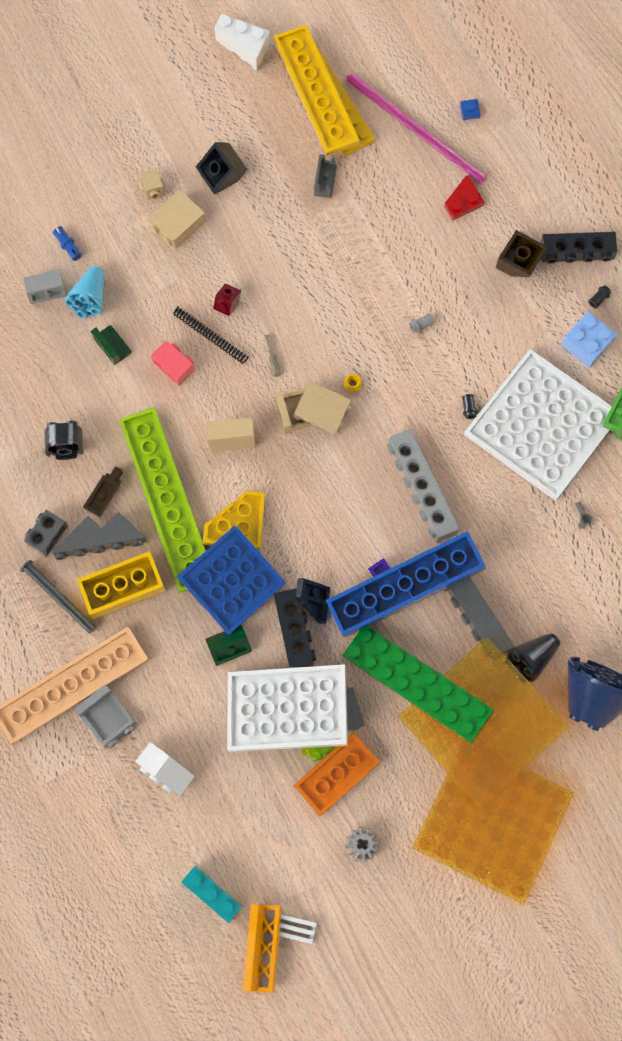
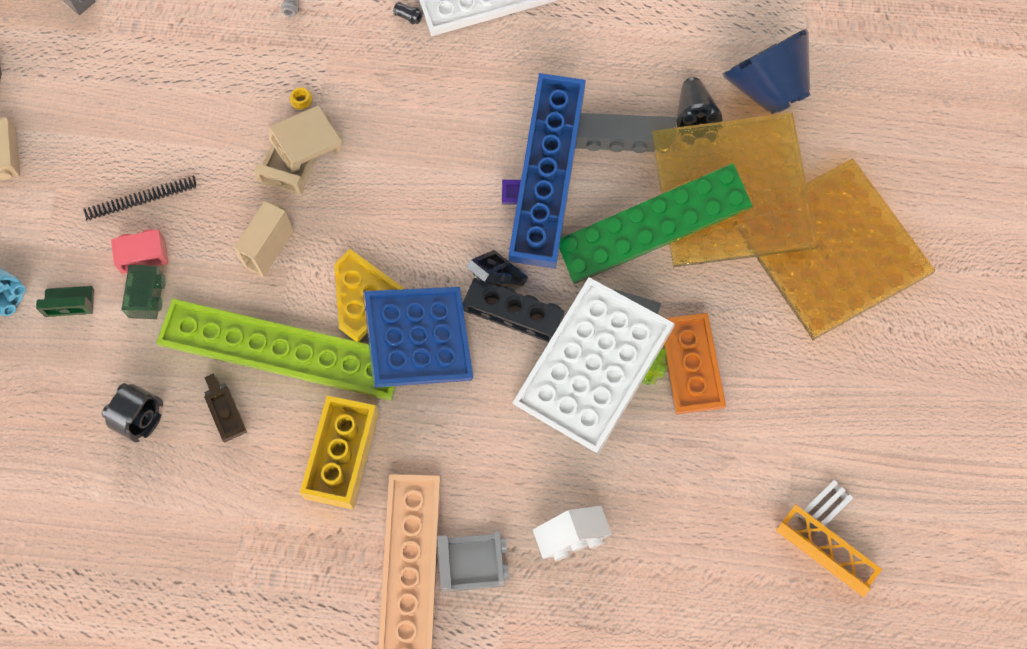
camera: 55 degrees left, 5 degrees down
(49, 535) = (224, 496): dark grey brick -> none
(58, 596) = (301, 530): dark grey axle -> none
(91, 537) = (264, 450): dark grey slope -> none
(147, 386) = (143, 292): none -> clear green brick
(211, 894) = (739, 566): teal arch -> none
(227, 299) = (117, 156): dark red brick -> none
(228, 647) = (485, 386): dark green panel -> none
(273, 359) = (214, 155): dark tan piece -> none
(363, 837) = (774, 389): light grey gear -> none
(406, 441) = (446, 91): light grey brick -> none

